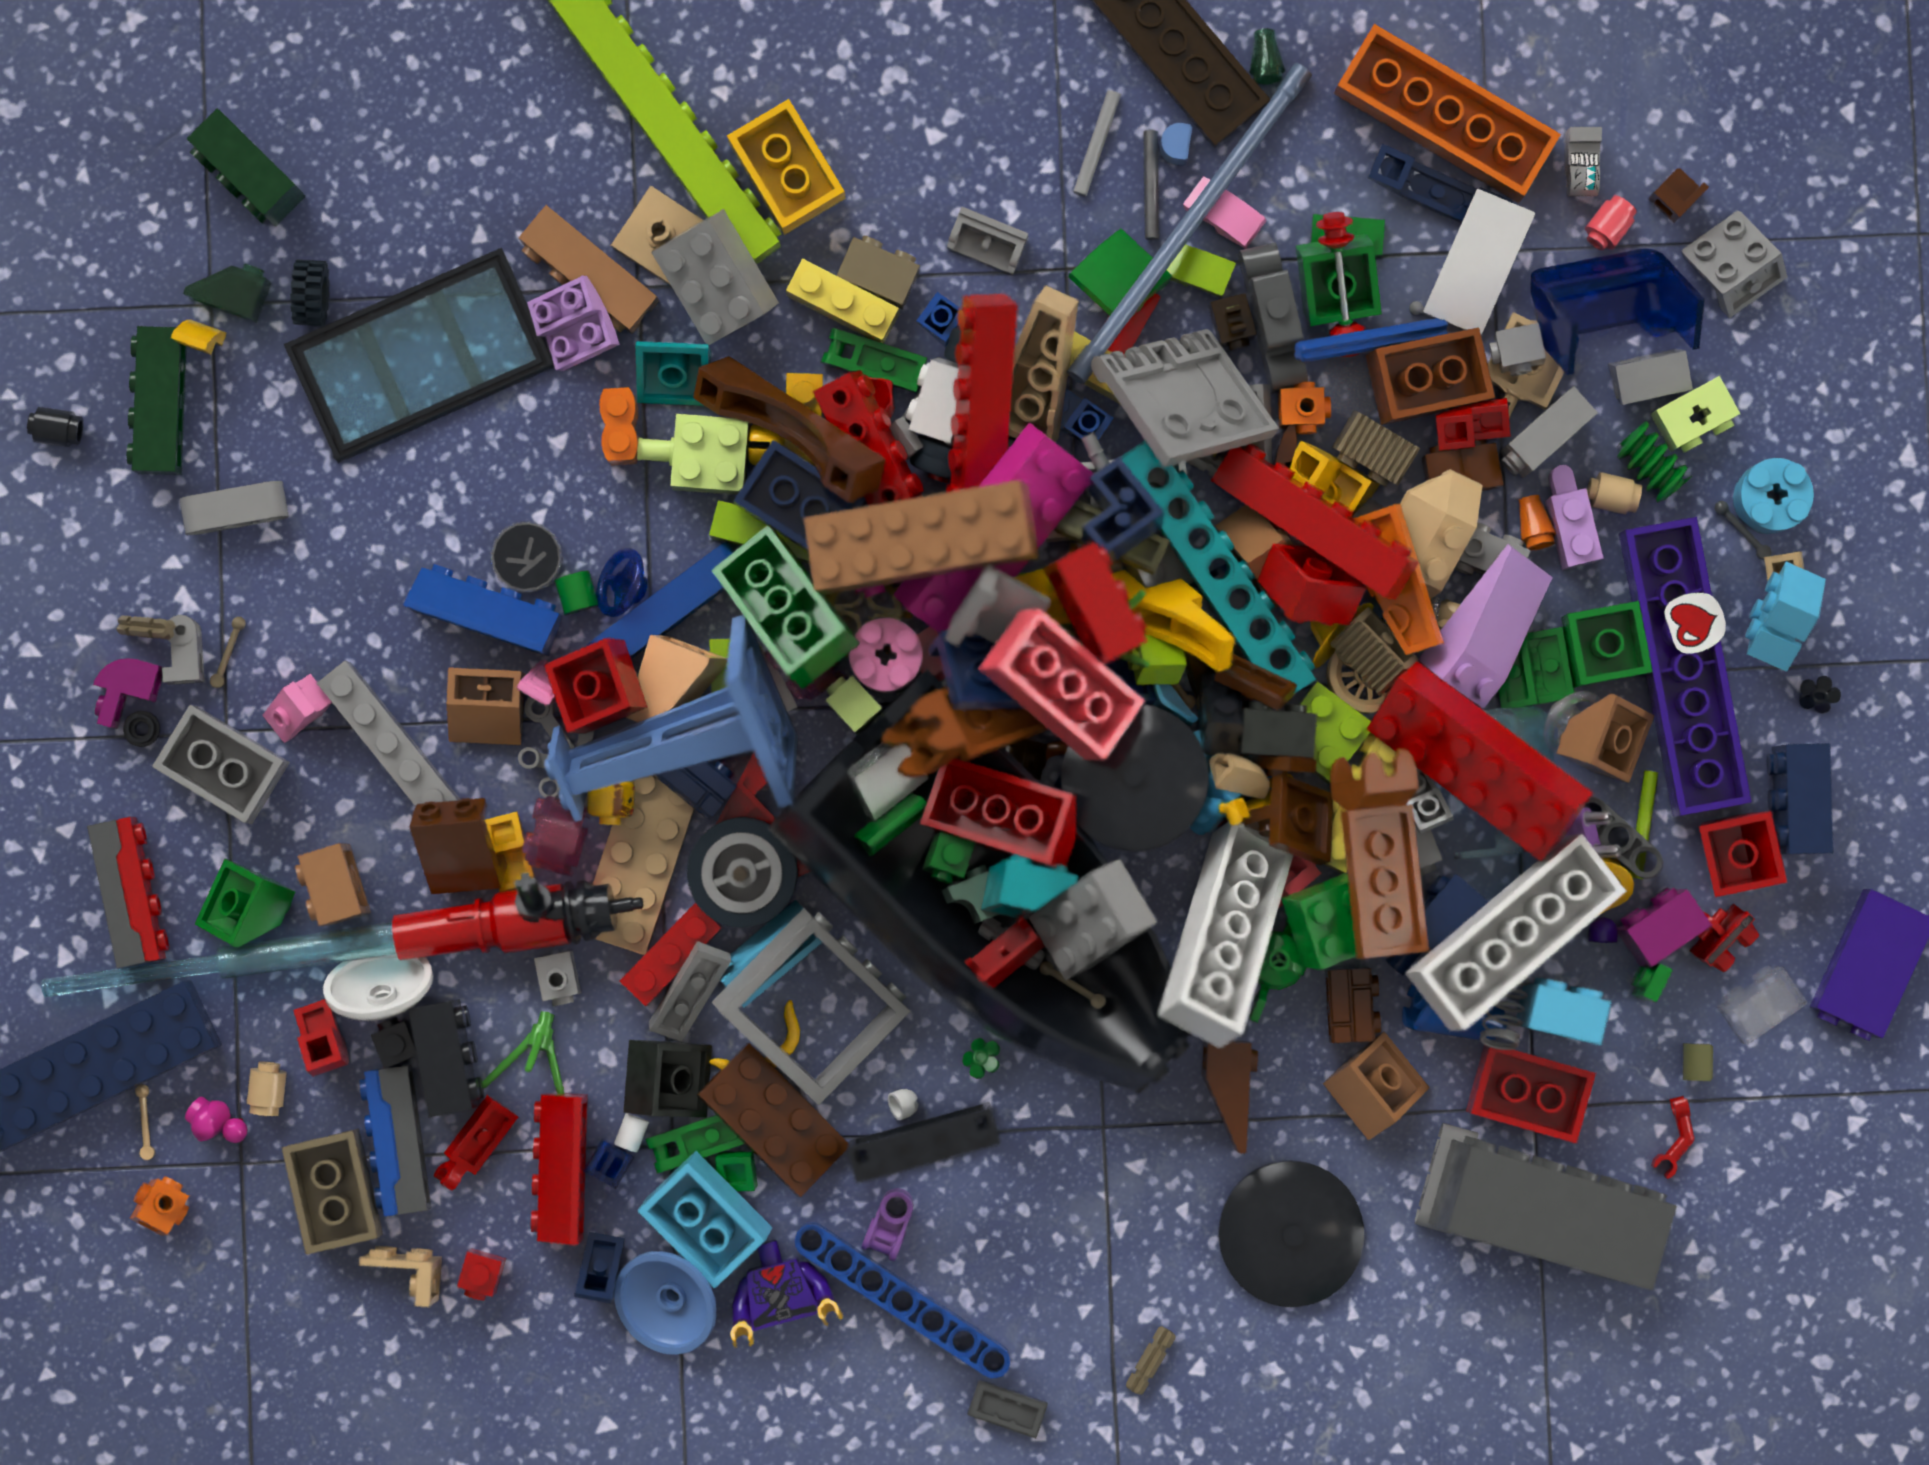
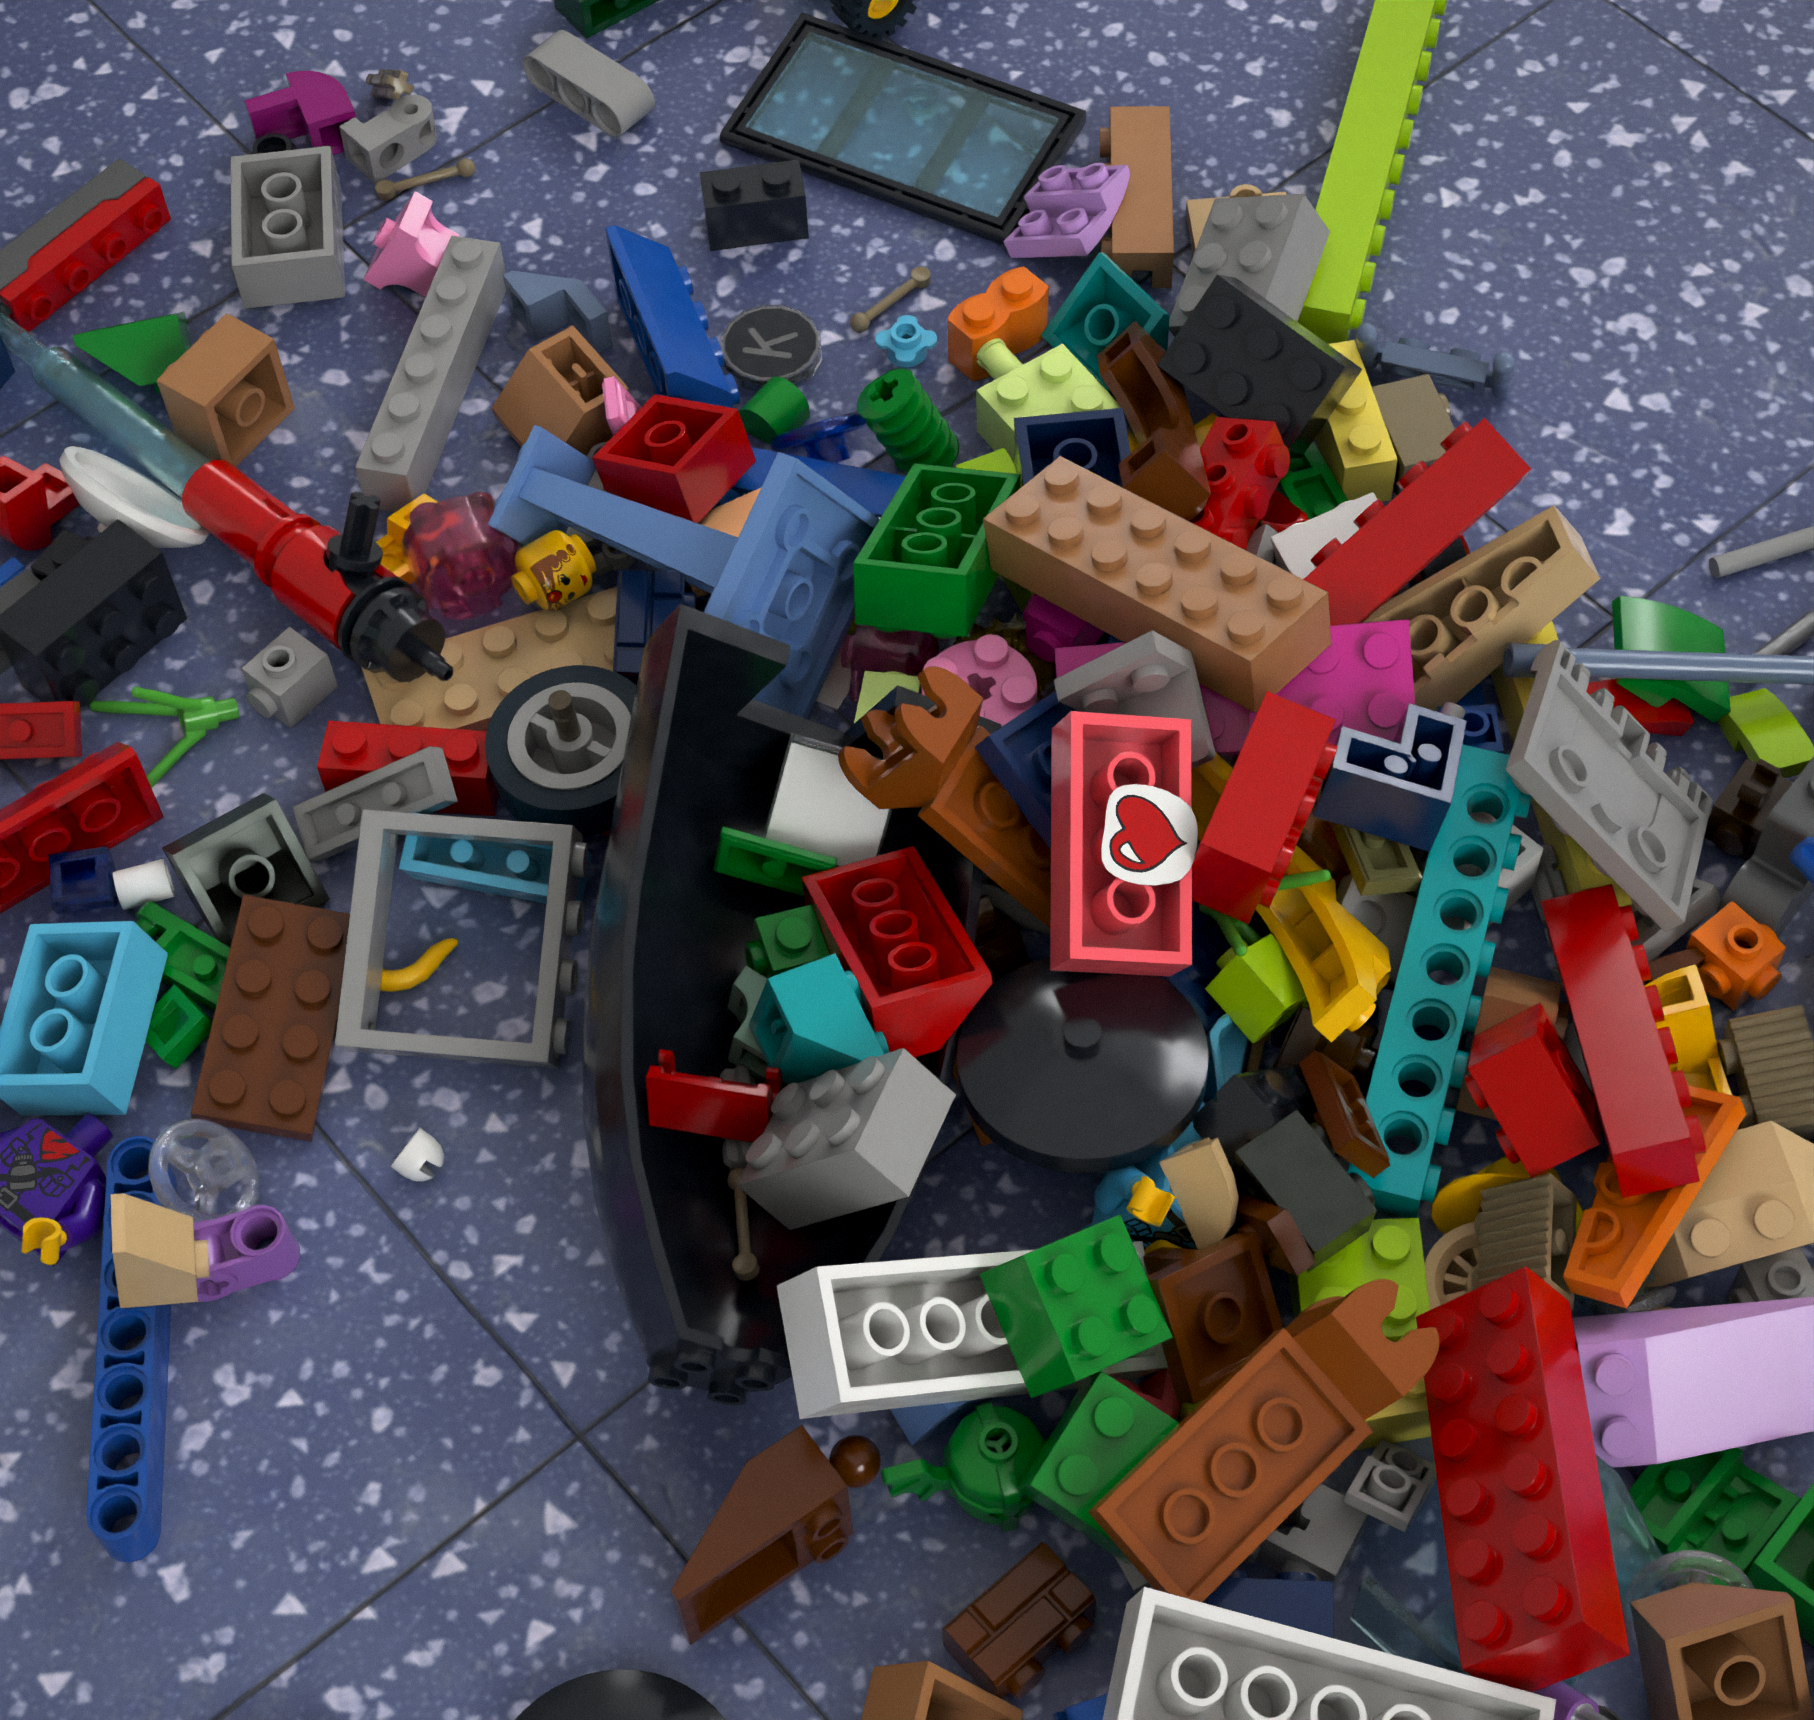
camera: 60 degrees right, 30 degrees down
(395, 660) = (553, 302): none -> sand blue slope
(417, 489) = (754, 205): none -> black brick
(456, 846) = (361, 451): reddish brown panel -> none
(539, 434) = (919, 278): none -> dark tan hinge
(593, 485) = (906, 342): none -> medium azure plate
(660, 537) = (907, 421): none -> green piece
(786, 166) = (1436, 271): yellow brick -> none
(794, 337) = (1258, 363): none -> black brick
(844, 1208) = (207, 1170): none -> clear piece
(853, 212) = (1457, 370): none -> sand blue plate
(888, 1266) = (155, 1254): none -> tan slope
(923, 1142) = (374, 1172): black window -> none
(982, 1058) = (554, 1206): green plant -> none
(987, 240) = (1572, 491): light grey hinge -> none
(1007, 1408) = (62, 1598): dark grey plate -> none
(1077, 675) = (1148, 835): none -> sticker
(1259, 885) = (1075, 1306): none -> green brick

